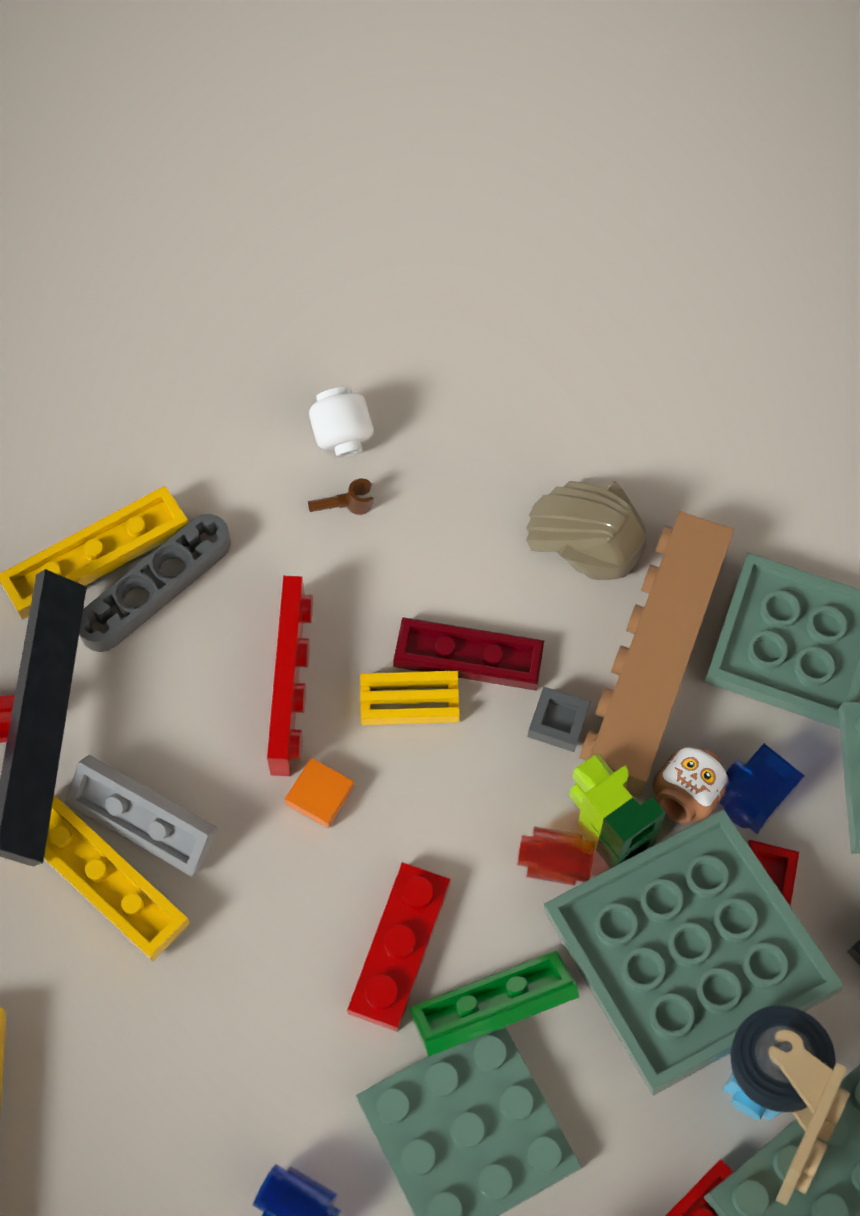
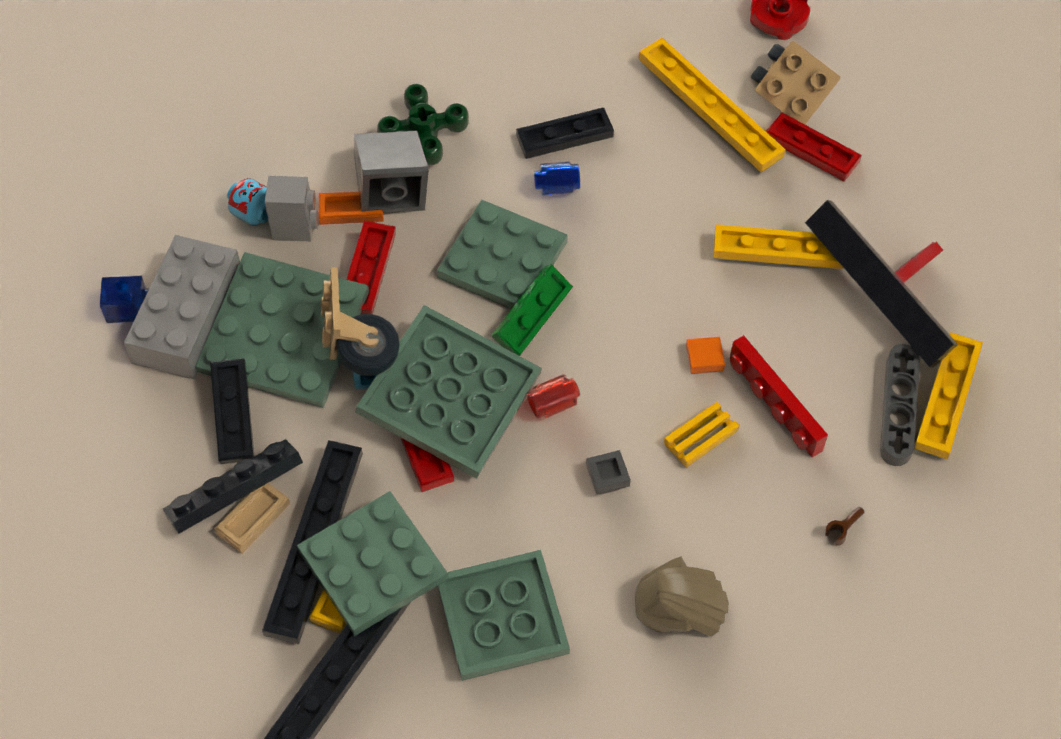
camera: 145 degrees right, 5 degrees down
(140, 815) = (784, 282): light grey plate -> none
(341, 421) = (891, 566): white head -> none
(399, 947) = (601, 312): red plate -> none
(471, 652) = (689, 482): dark red tile -> none
(612, 814) = (538, 424): hips -> none
(660, 649) = (580, 551): medium nougat brick -> none
(690, 785) = (506, 477): head -> none
(759, 788) = (466, 503): clear blue brick -> none

